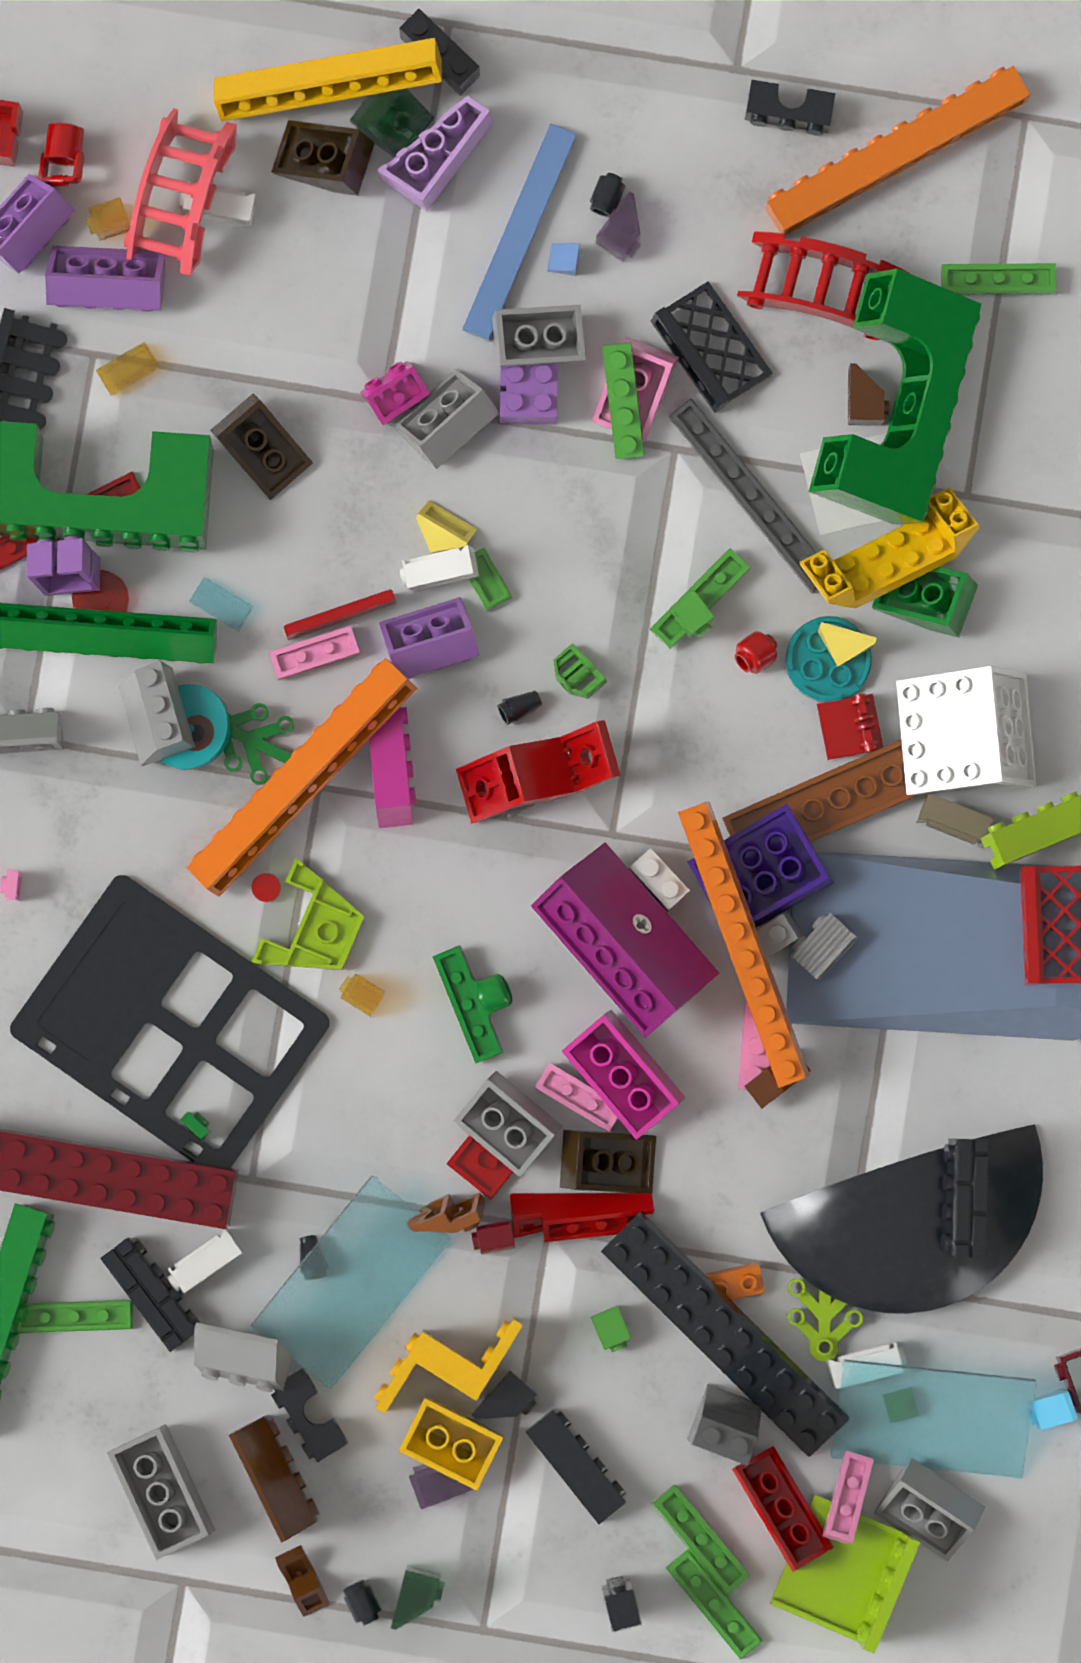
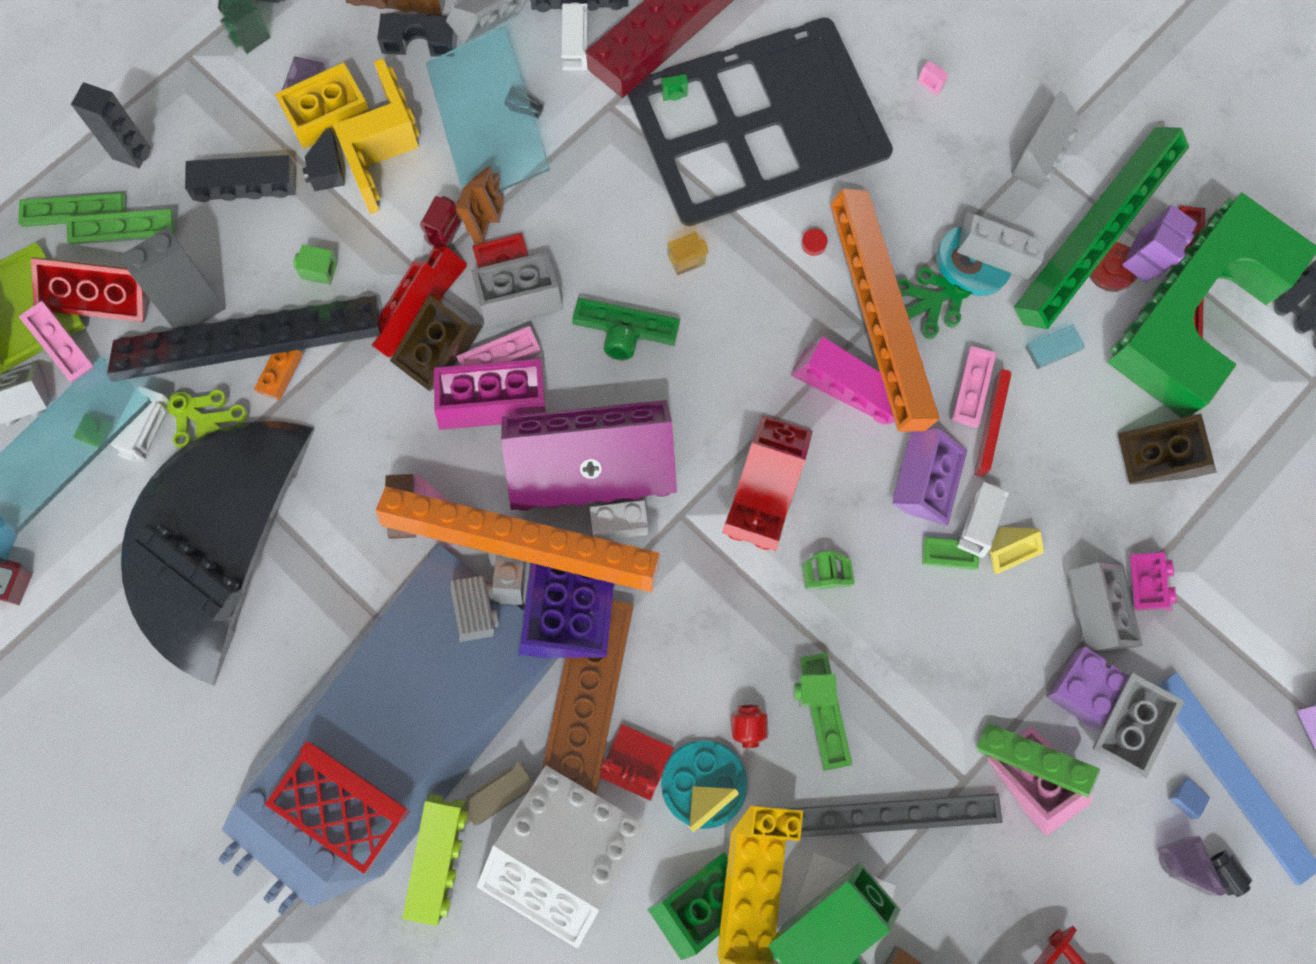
camera: 125 degrees right, 10 degrees down
(127, 368) = (1289, 396): clear yellow tile -> none
(324, 932) = (753, 259): lime wing -> none
(518, 707) = (830, 508): black cone -> none
(689, 355) = (1045, 848): black fence -> none

